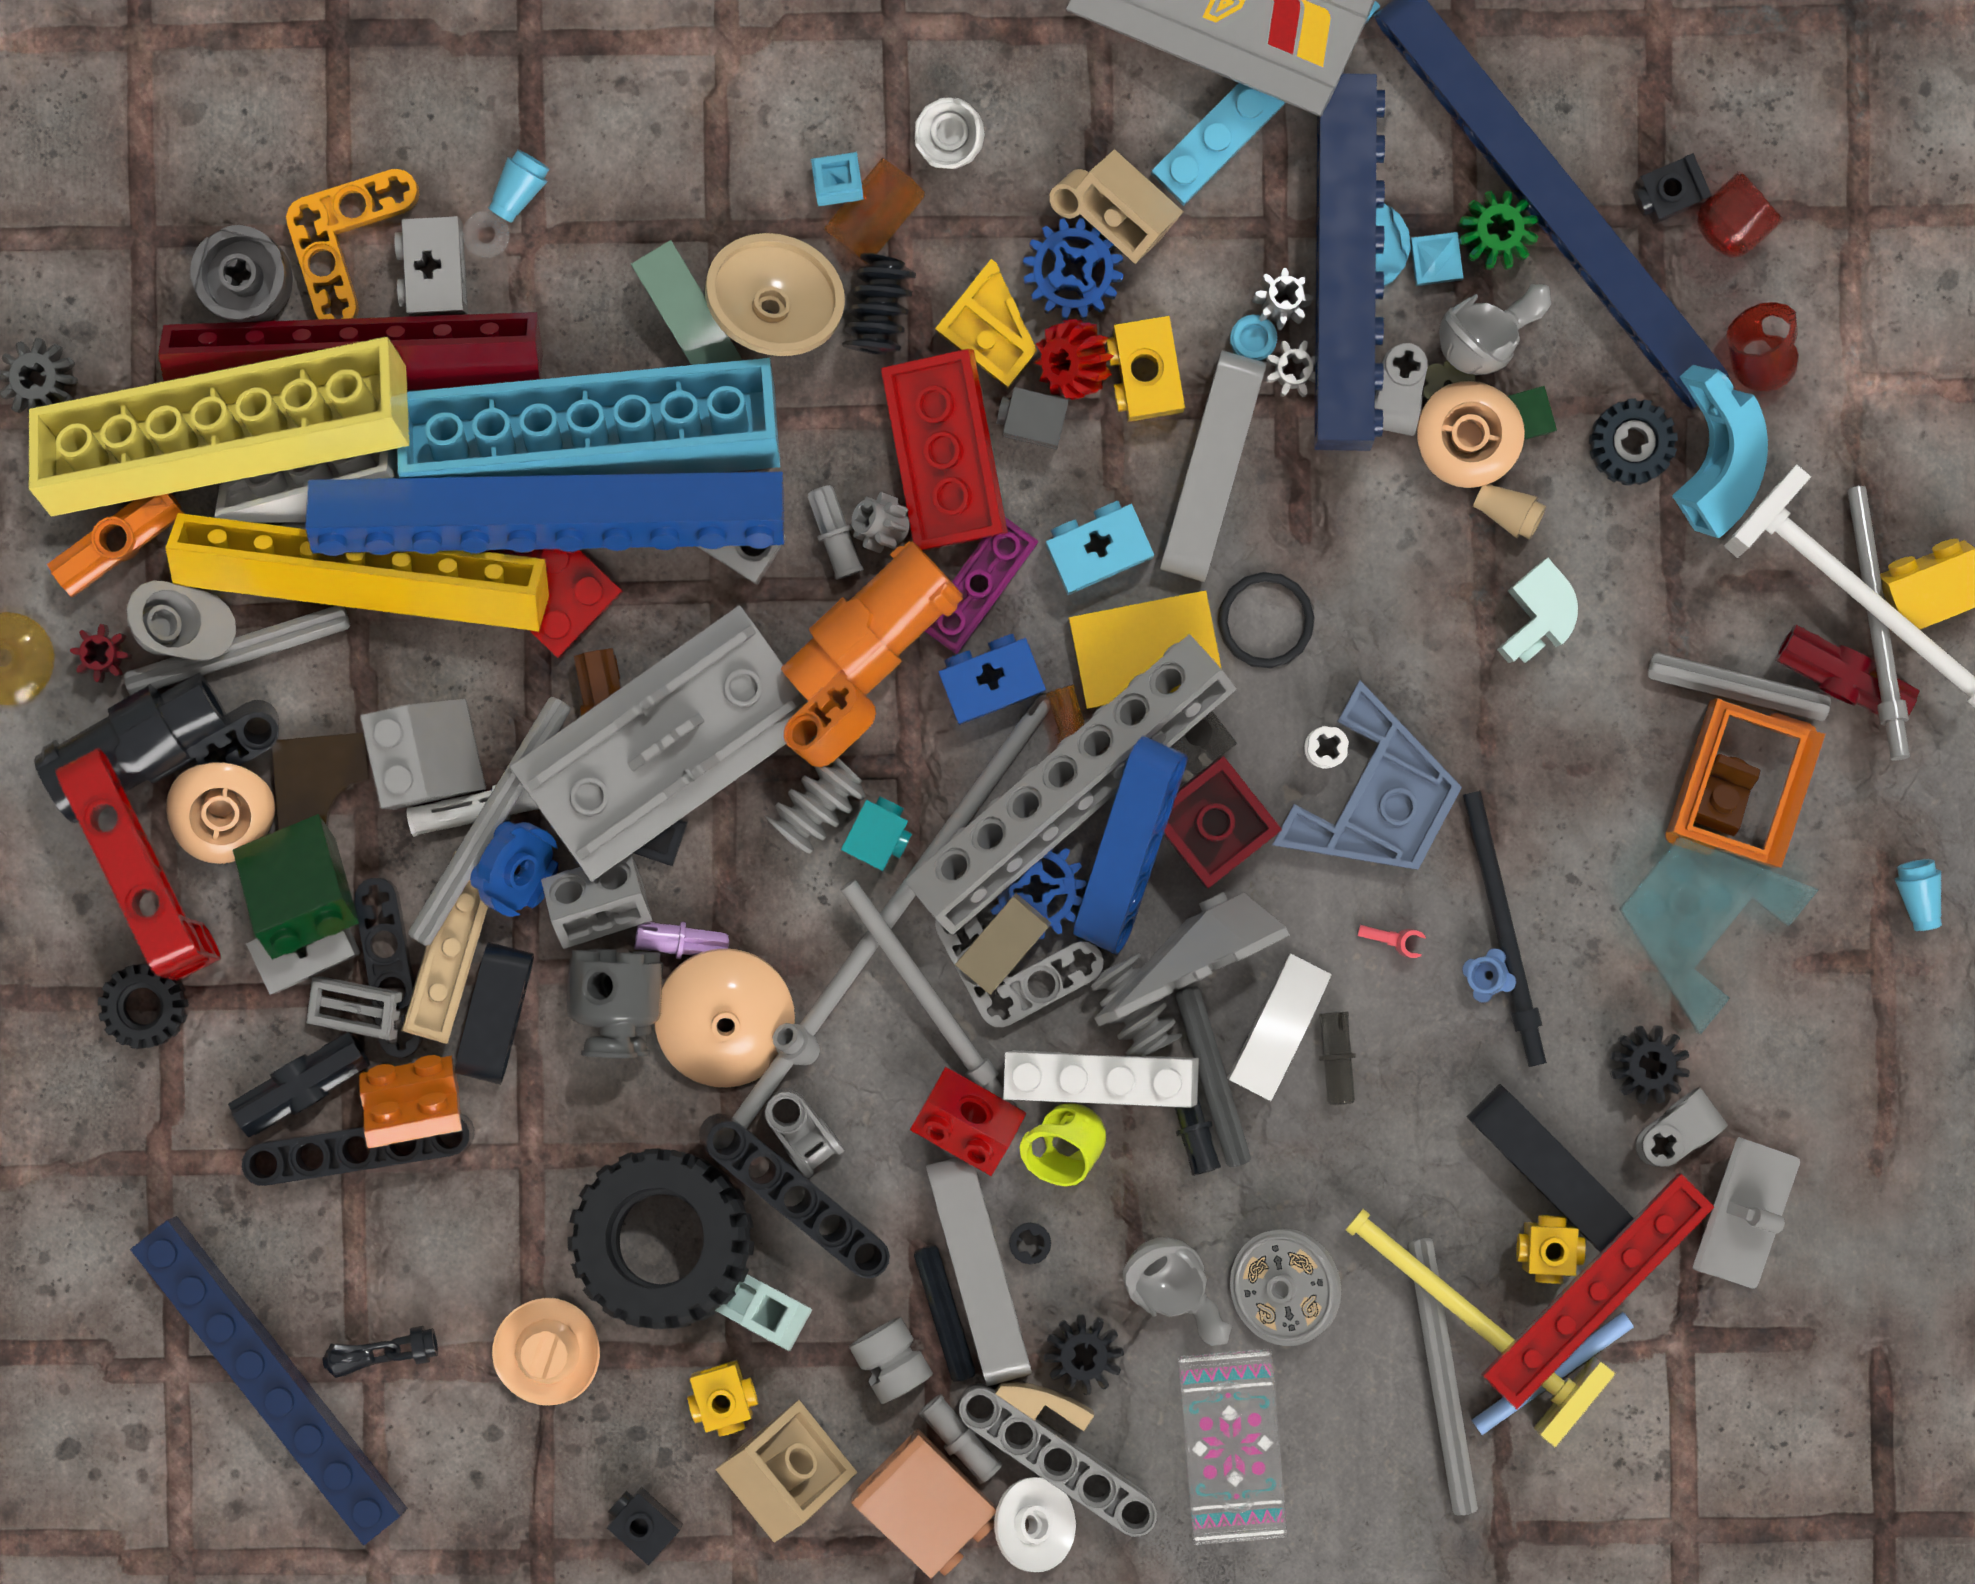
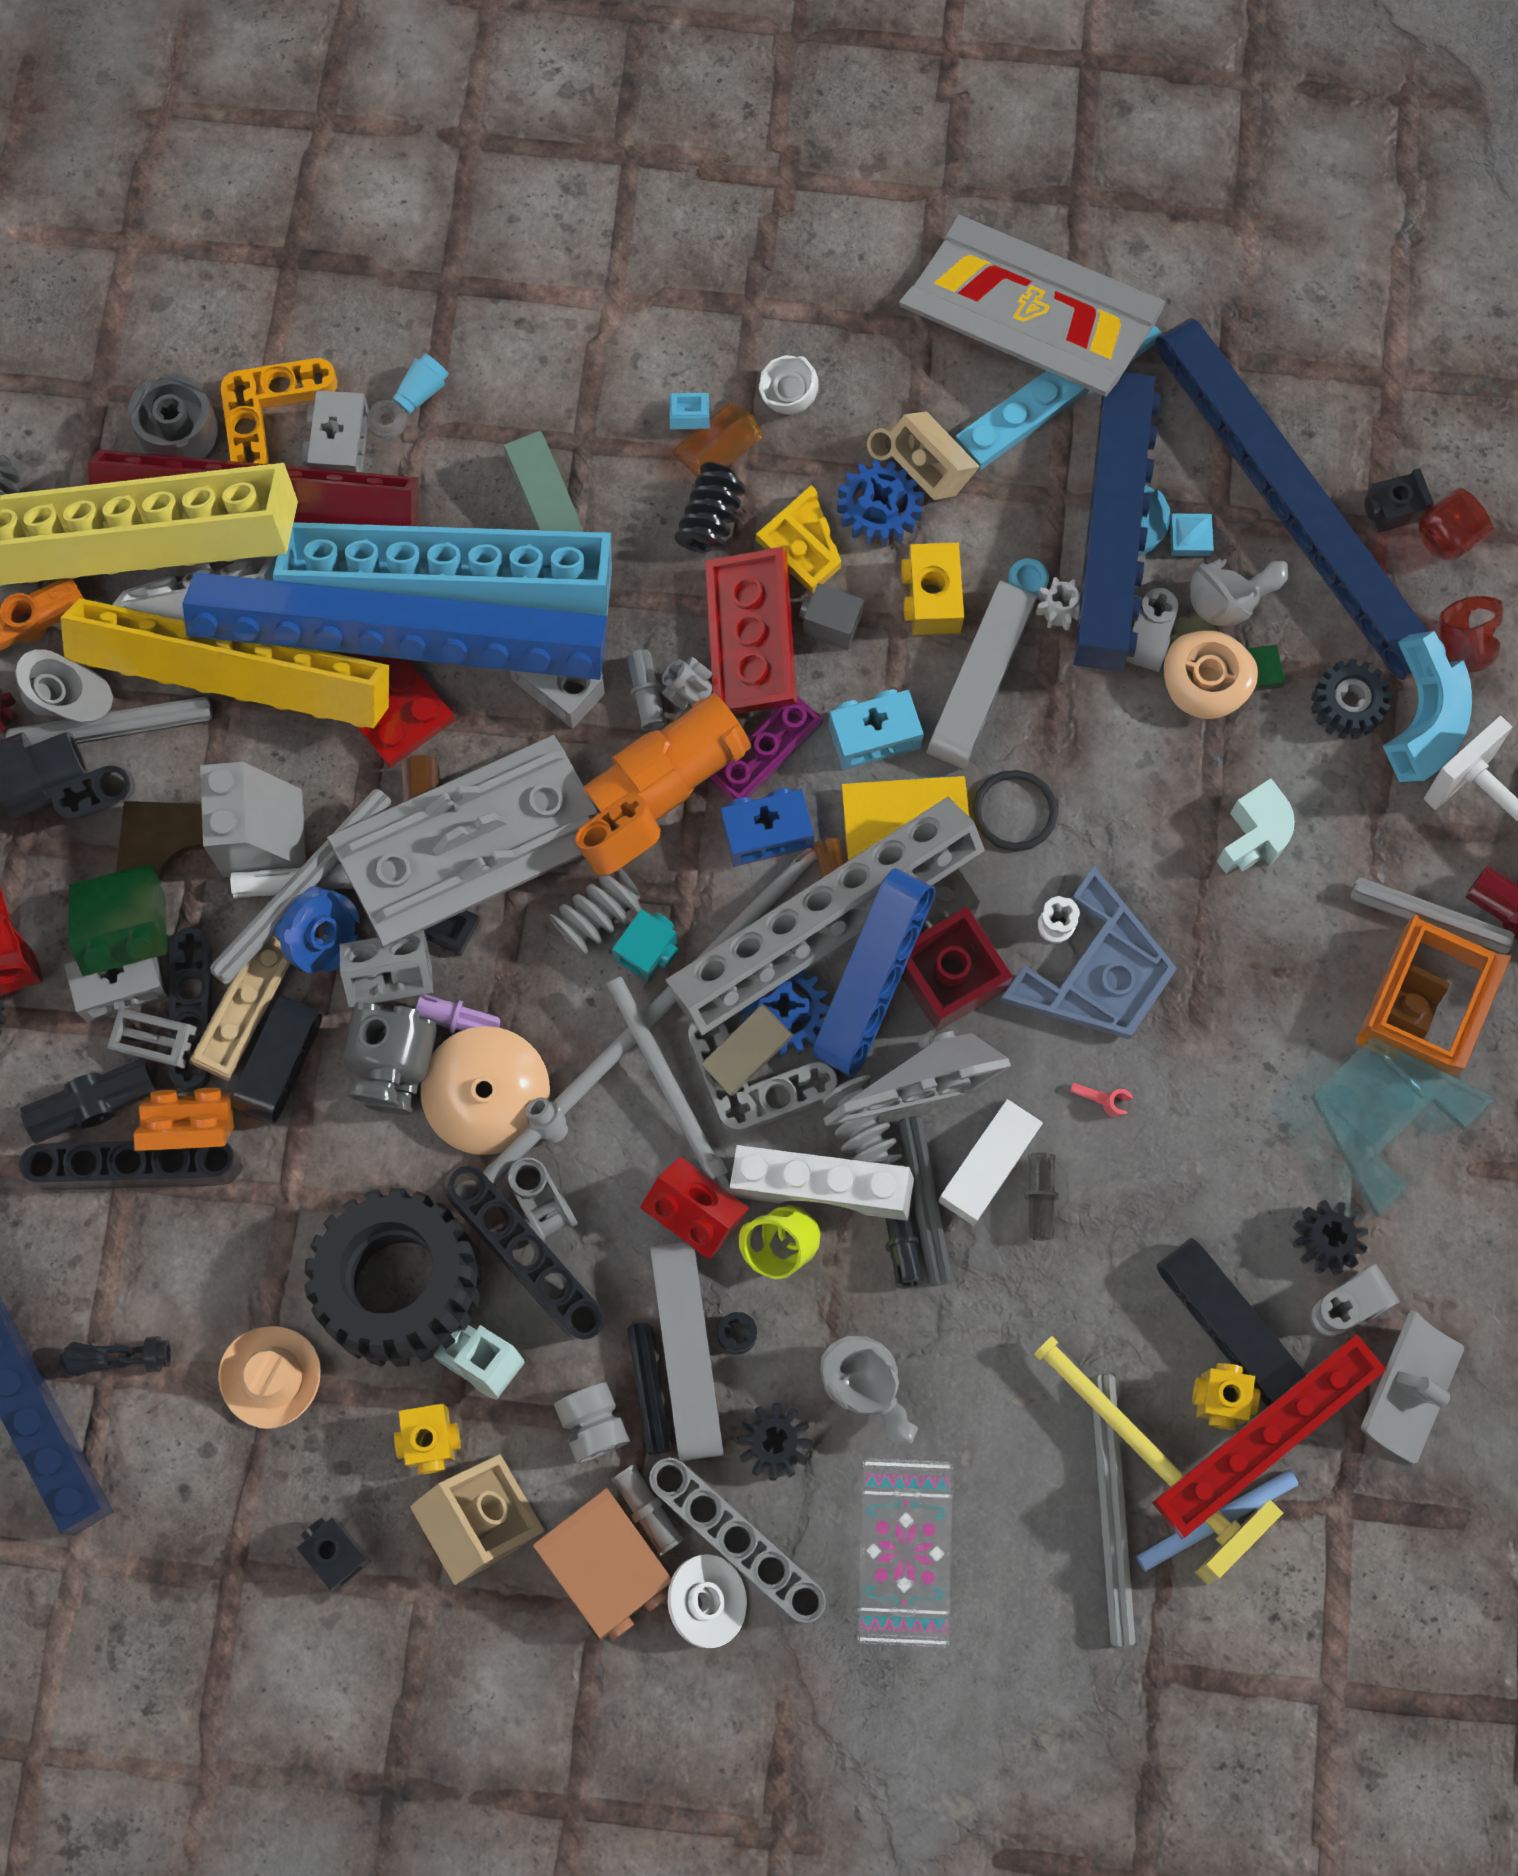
camera: 10 degrees right, 15 degrees down
(218, 810) = (64, 847): light nougat hat -> none
(780, 277) = (622, 487): tan dish -> none
(1032, 1398) = (721, 1478): tan slope -> none
(1073, 359) = (872, 569): red gear -> none
(1282, 285) = (1057, 546): light grey gear -> none
(1285, 1287) = (972, 1401): light grey shield -> none
(1476, 970) = (1179, 1131): medium blue plate -> none
(1505, 216) = (1247, 515): green gear -> none
(1511, 509) = (1241, 742): tan cone -> none
(1525, 1018) = (1218, 1181): black bar -> none

